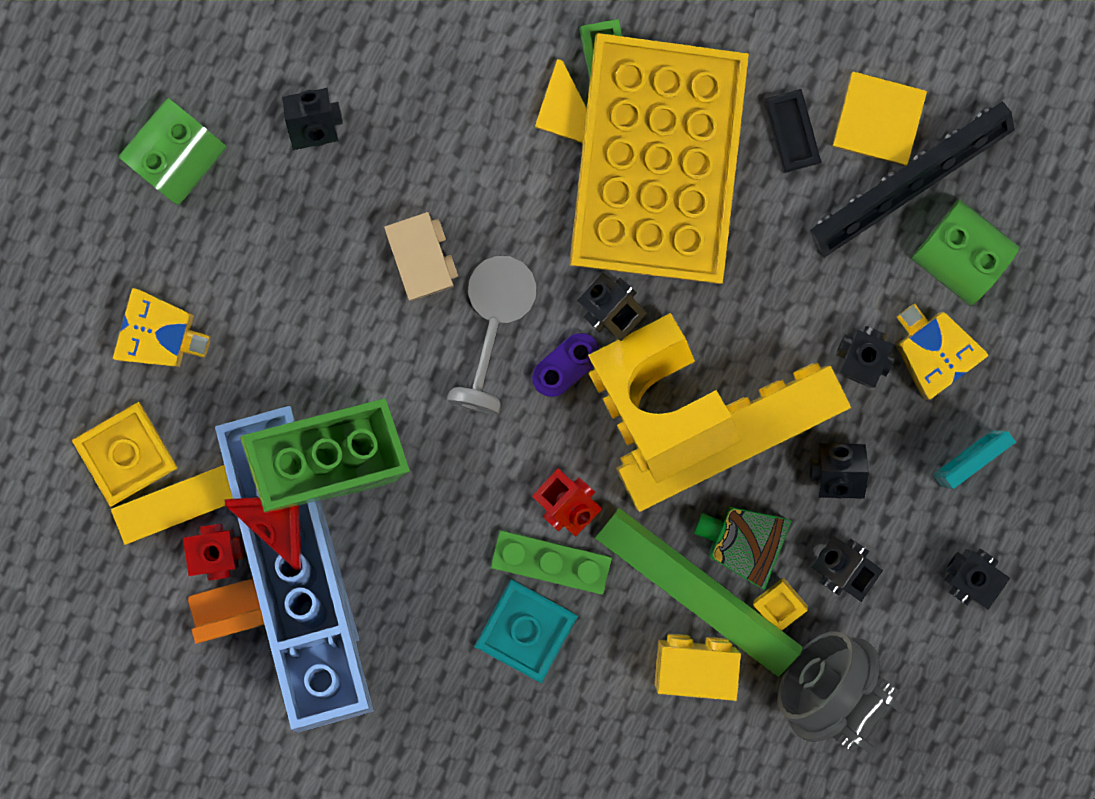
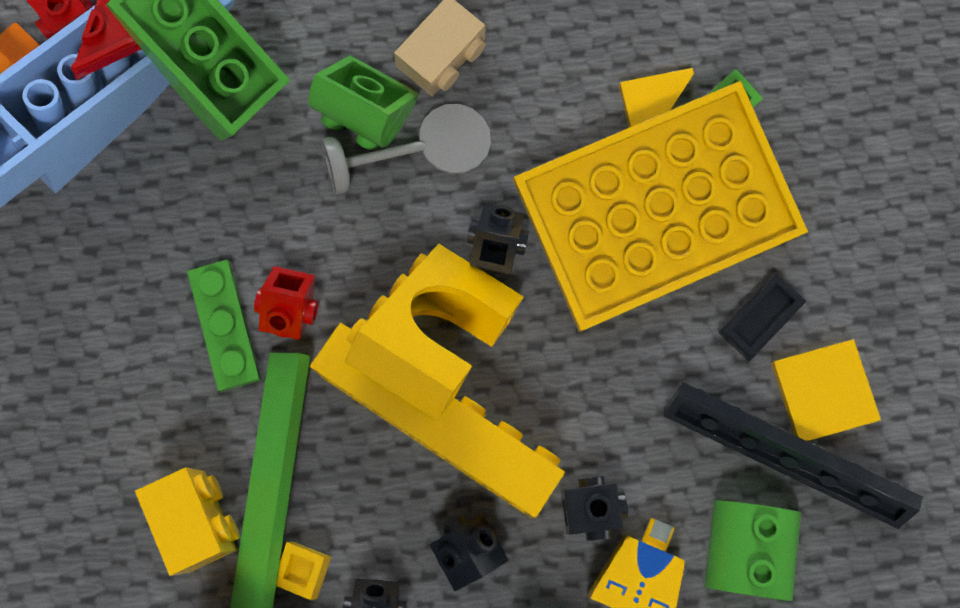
camera: 60 degrees right, 10 degrees down
(432, 346) = (362, 101): none -> bright green brick
(526, 631) = (144, 339): teal tile -> none
(565, 364) = (419, 230): dark purple plate -> none
(745, 541) = (344, 497): torso -> none

